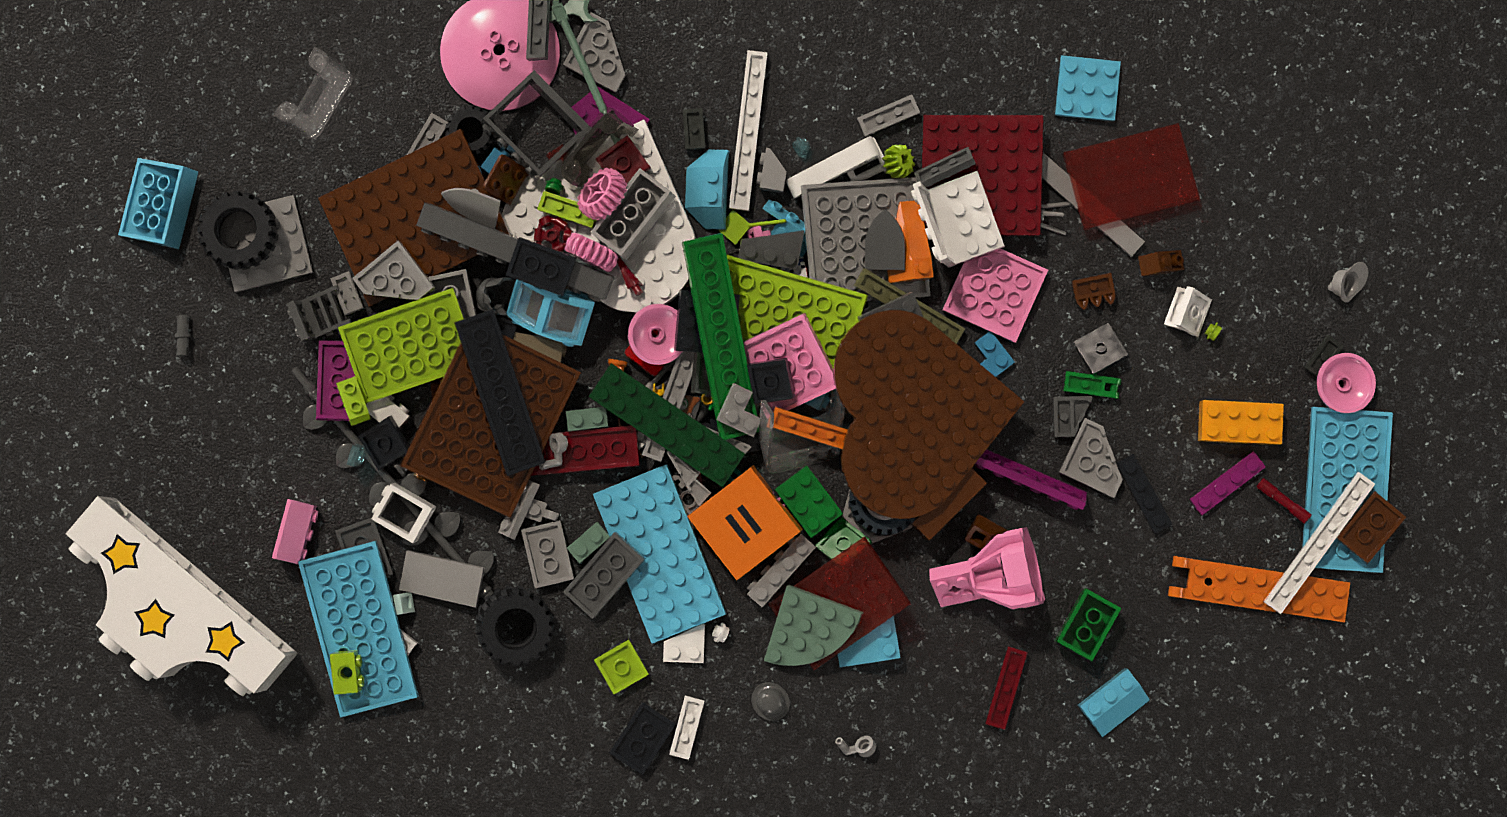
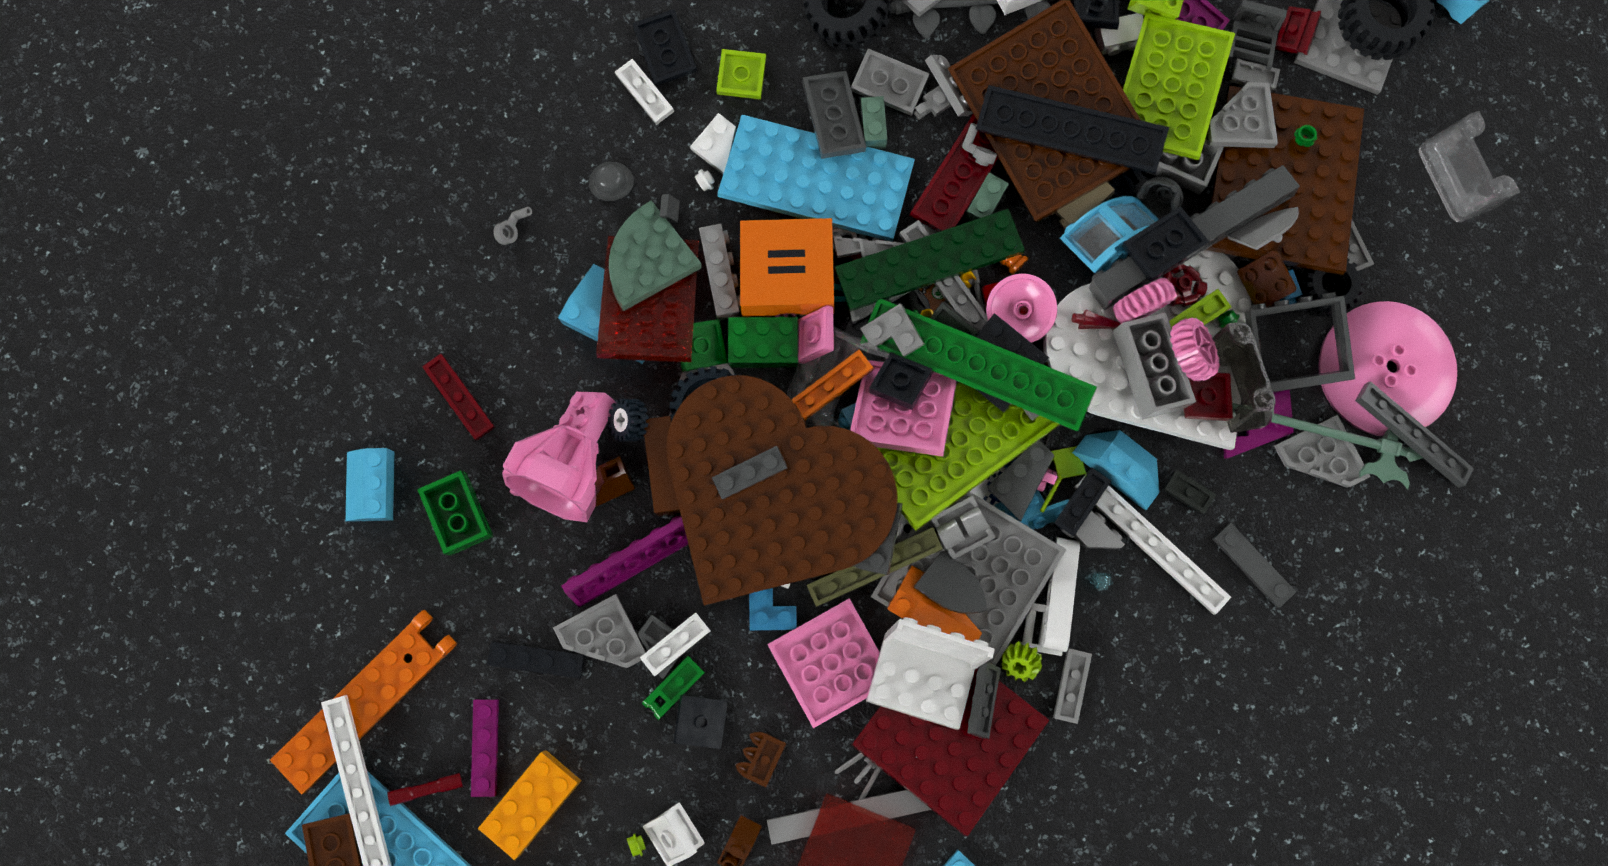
camera: 130 degrees right, 5 degrees down
(290, 286) = (1298, 30): none -> dark red plate
(370, 224) = (1308, 131): none -> green plate
(711, 49) = (1254, 565): none -> dark grey plate
(759, 197) = (1081, 503): none -> black plate
(760, 642) = (669, 208): none -> dark grey tile
(779, 466) = (815, 334): none -> bright pink tile
(840, 265) = (962, 527): none -> light grey plate
(914, 434) = (750, 472): none -> dark grey plate
(937, 549) = (628, 420): none -> black wheel
(1062, 404) = (675, 644): none -> white plate

